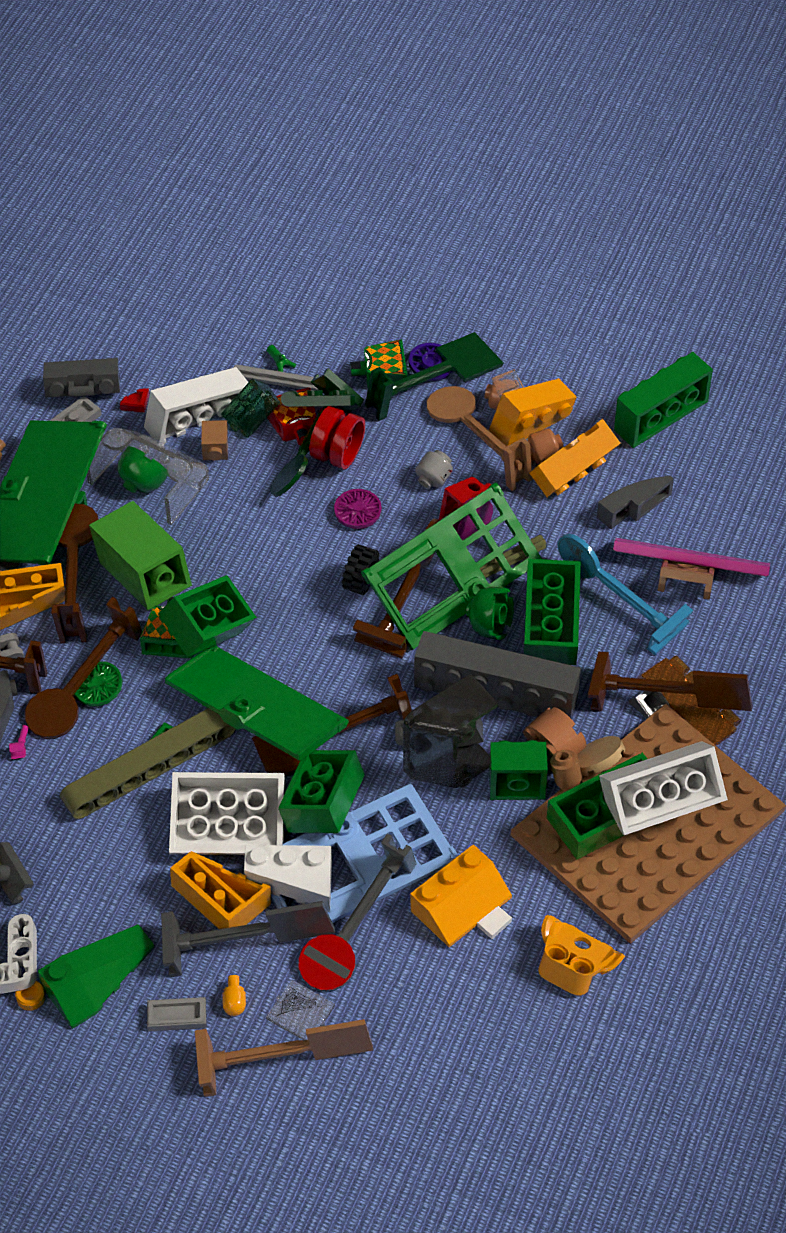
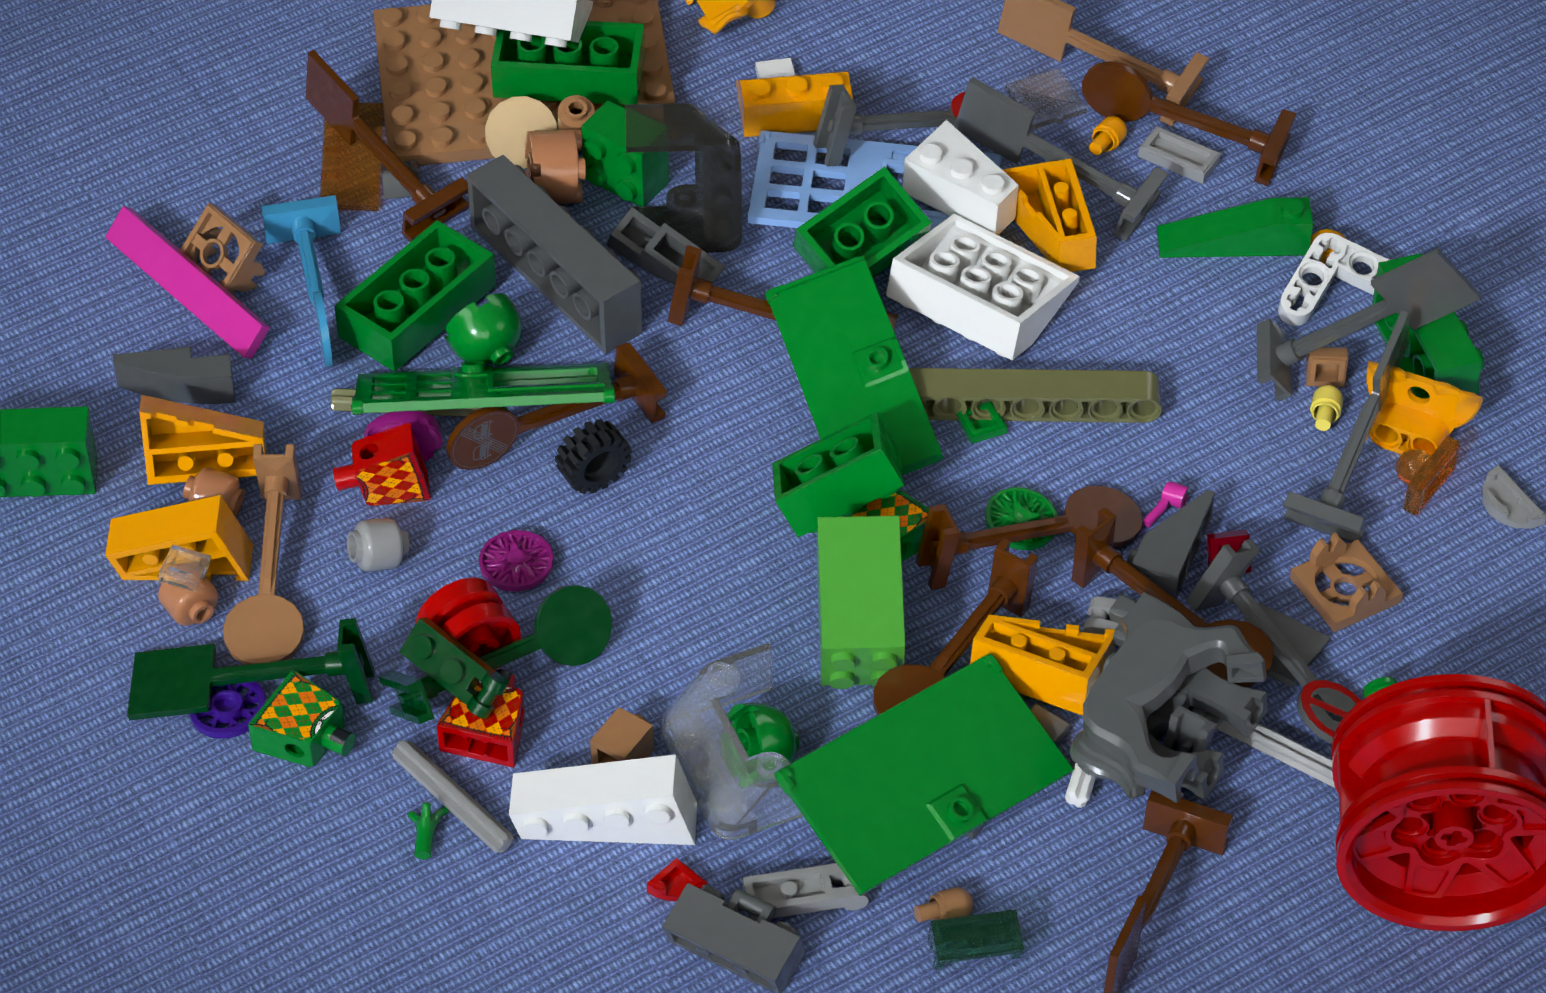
camera: 145 degrees left, 5 degrees down
(232, 1016) = (1125, 93): none -> reddish brown piece
(250, 407) = (536, 744): clear green hinge -> none

